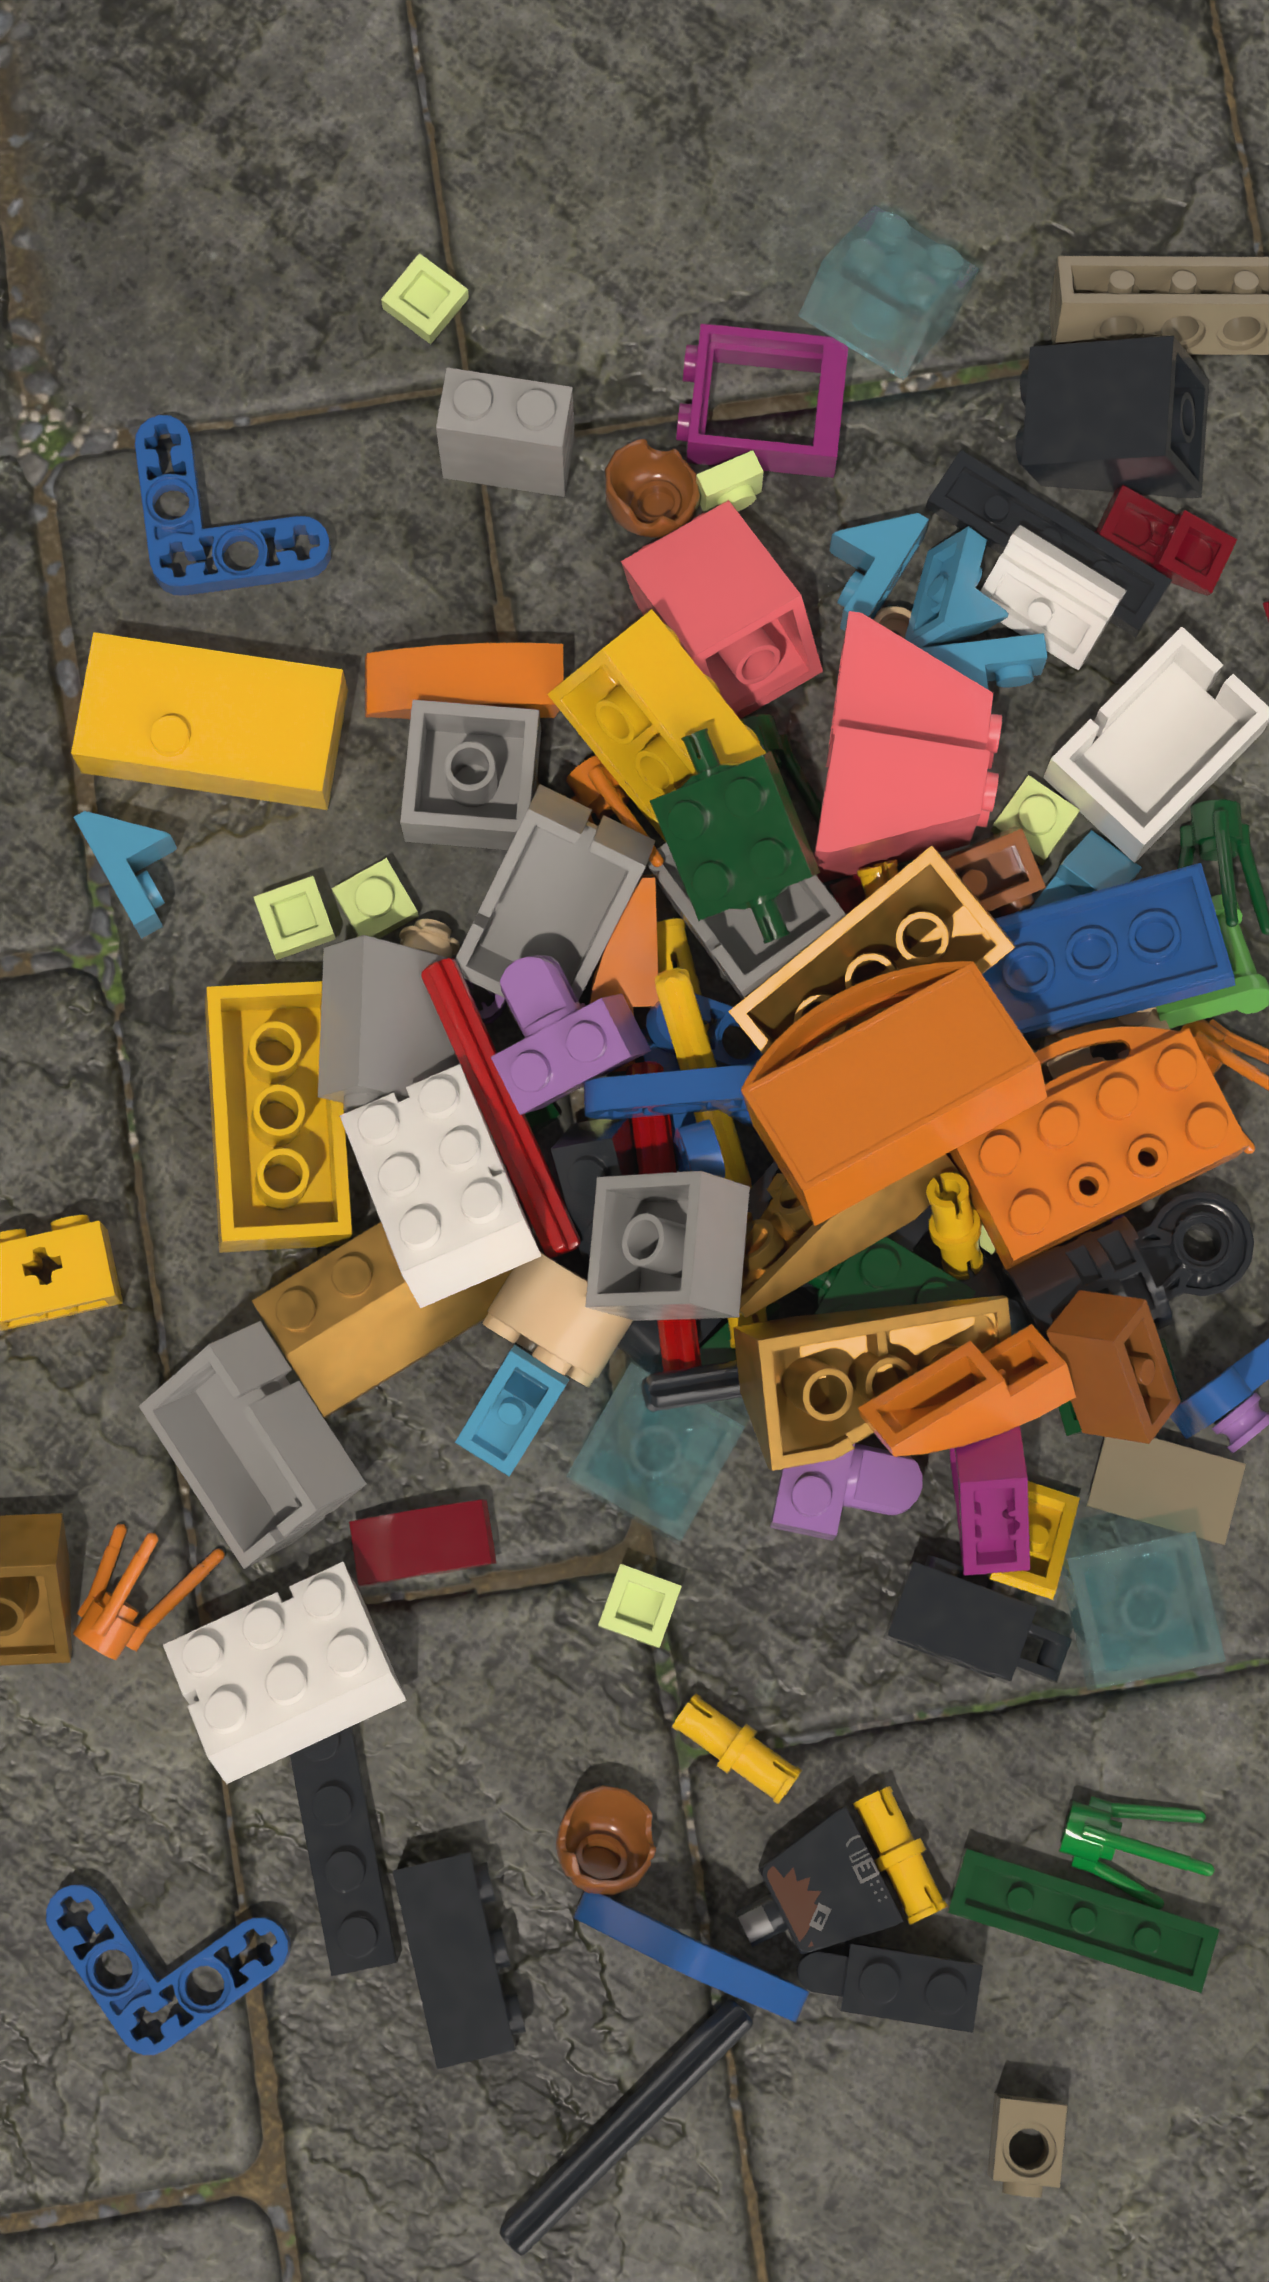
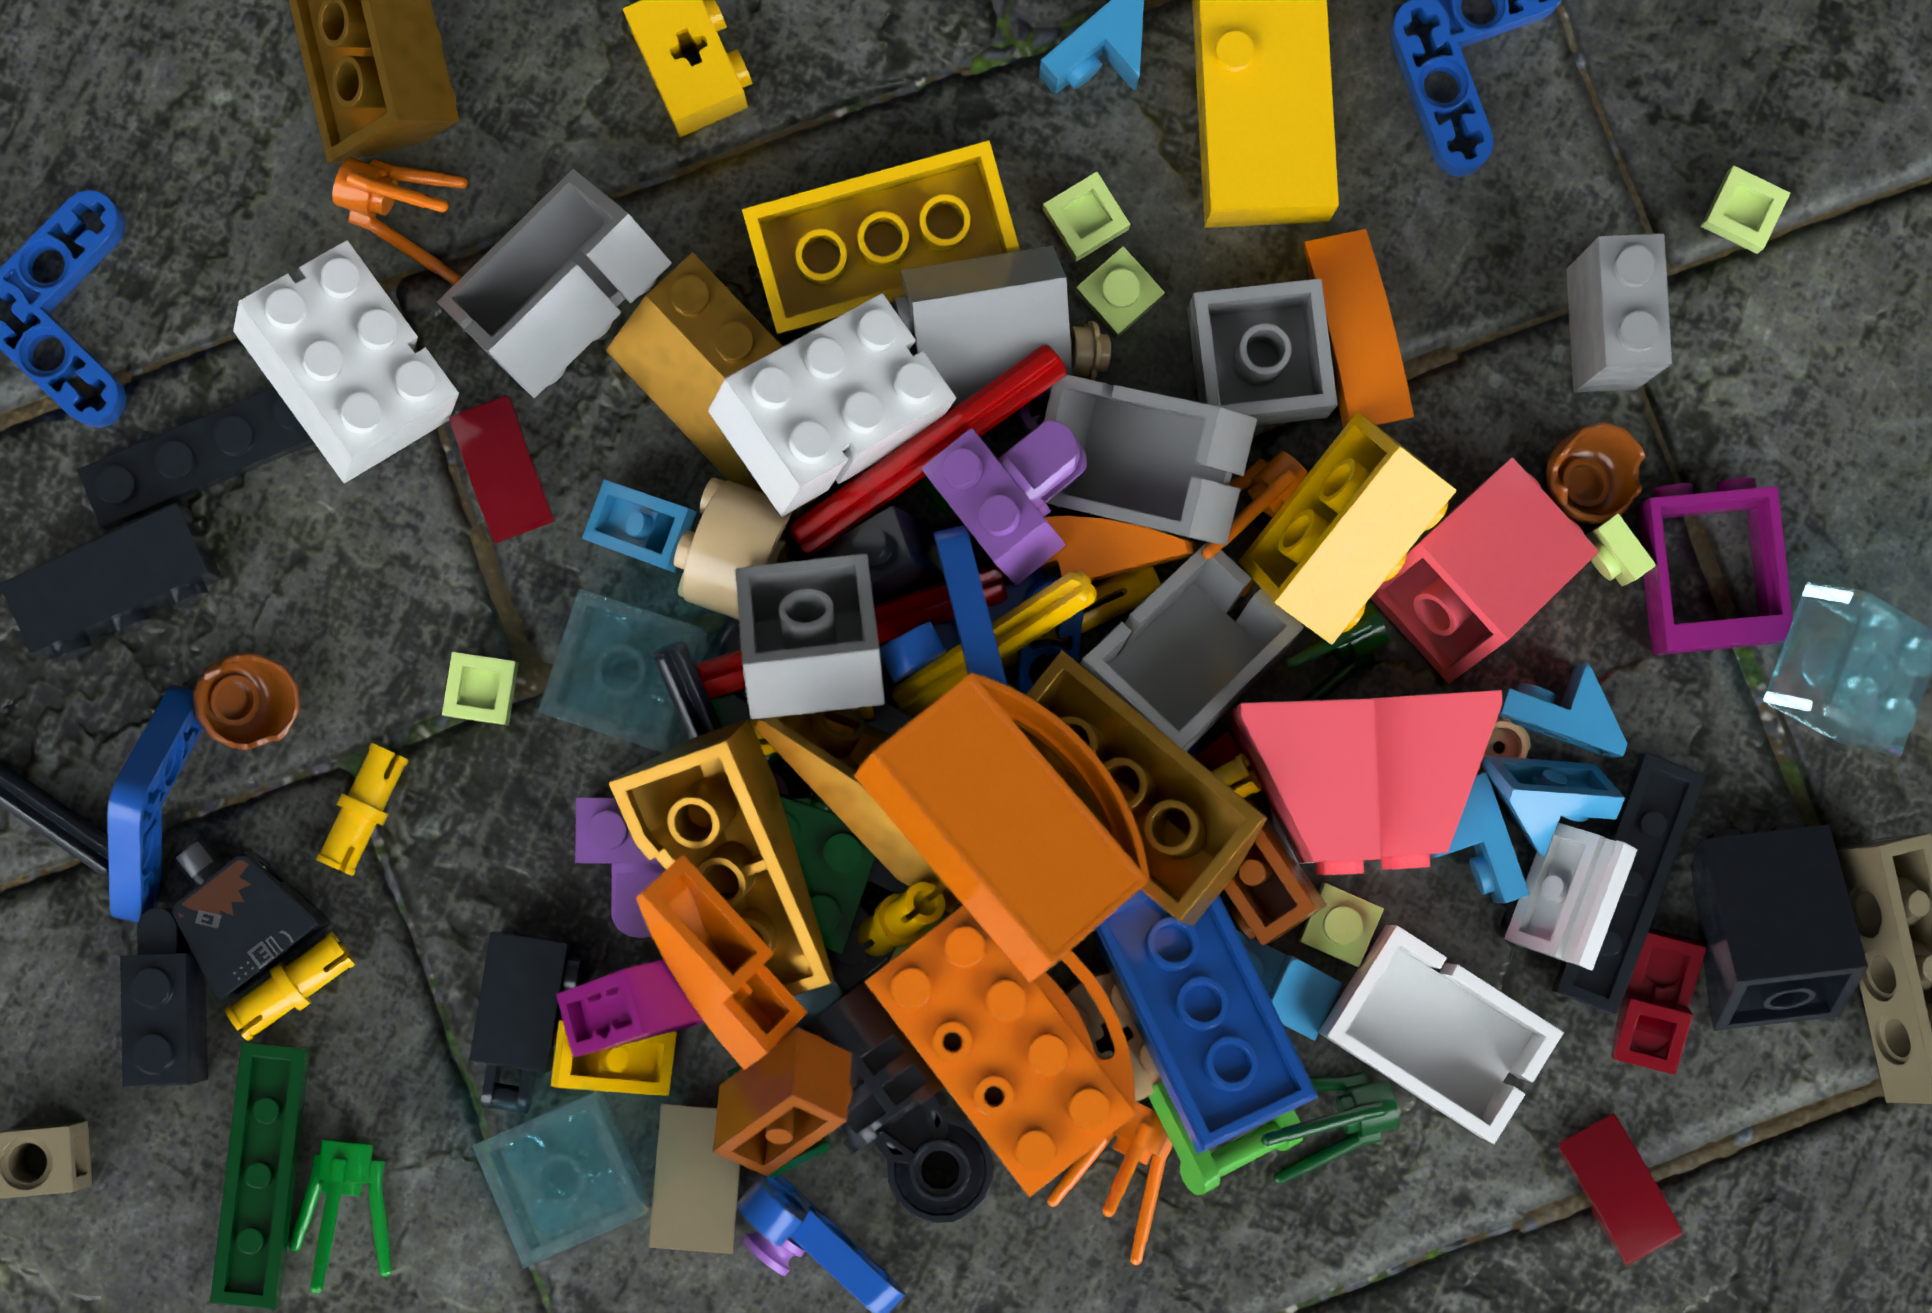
camera: 75 degrees right, 5 degrees up
(735, 836) = (1240, 620): dark green plate -> none

